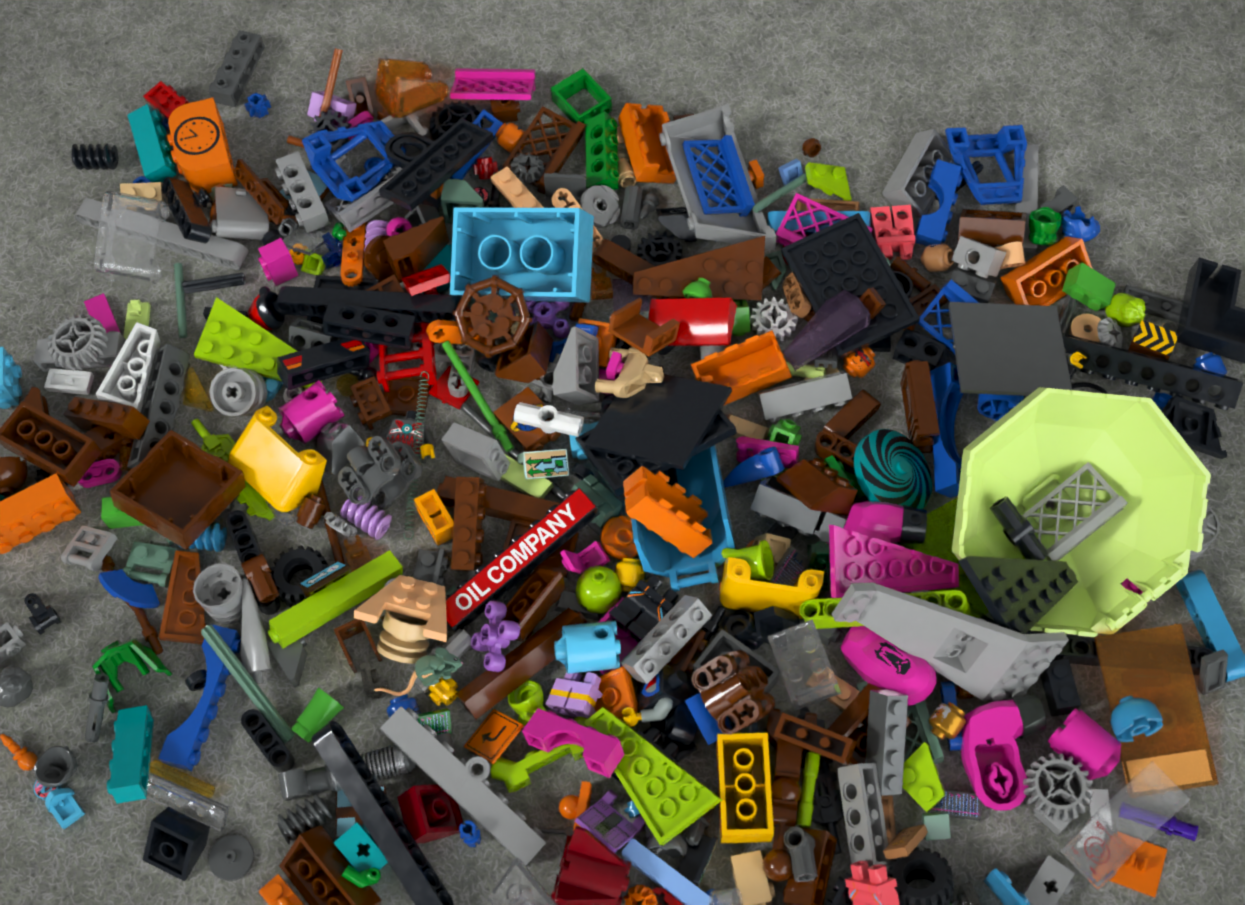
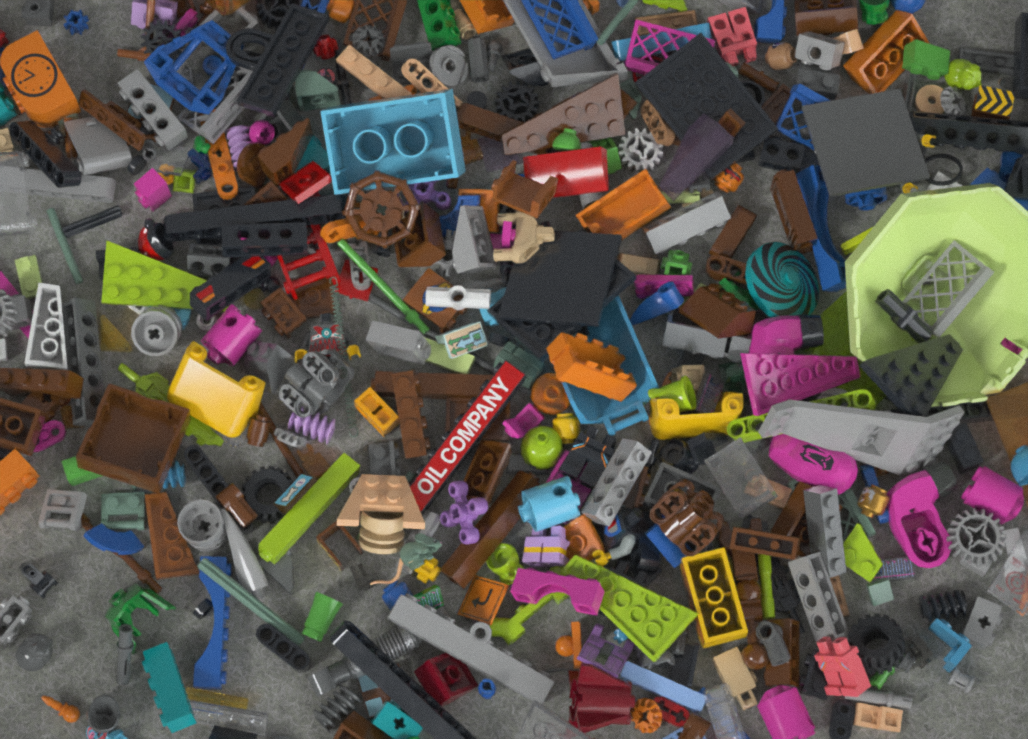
camera: 15 degrees left, 10 degrees up
(905, 842) = (857, 612): medium nougat tile -> none
(1006, 856) = (943, 604): none -> black piece

